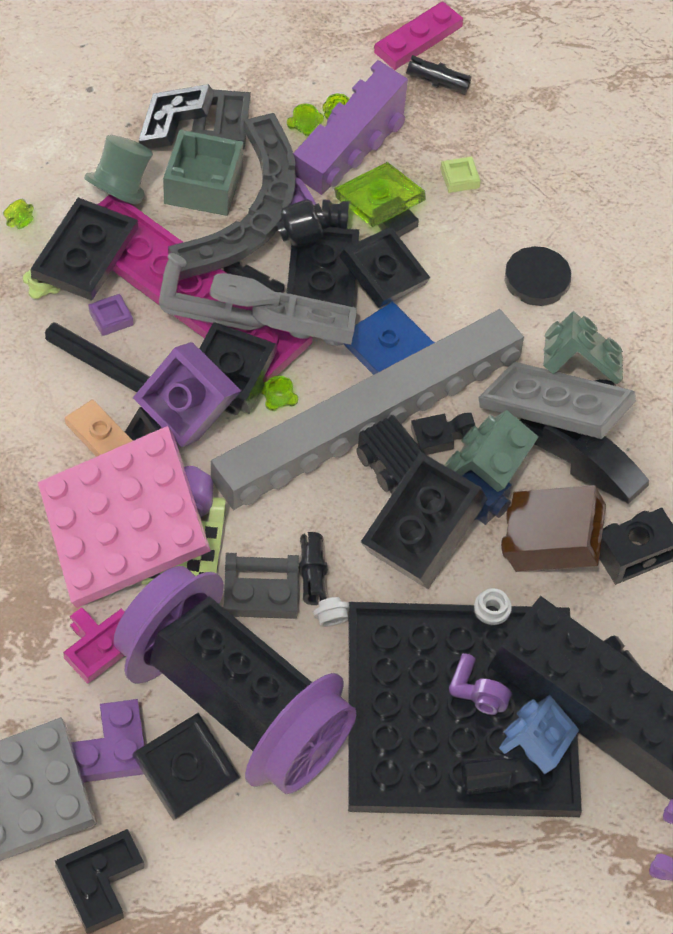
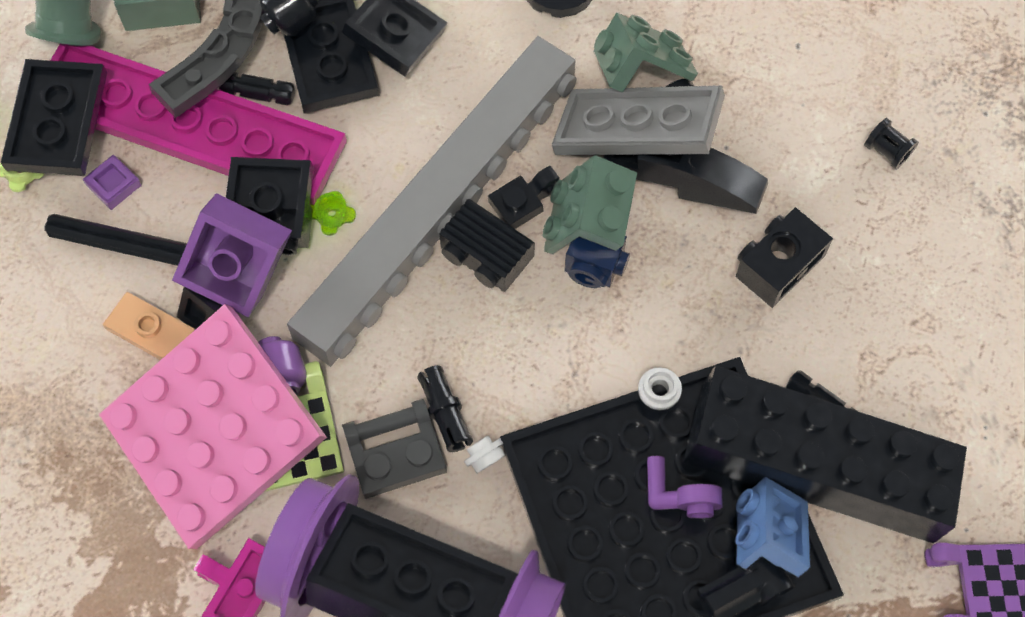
camera: 15 degrees left, 10 degrees up
(278, 310) = (246, 116): light grey plate -> none
(386, 338) = (426, 110): blue plate -> none
(424, 520) = (549, 313): black brick -> none
(554, 528) = (691, 272): brick -> none

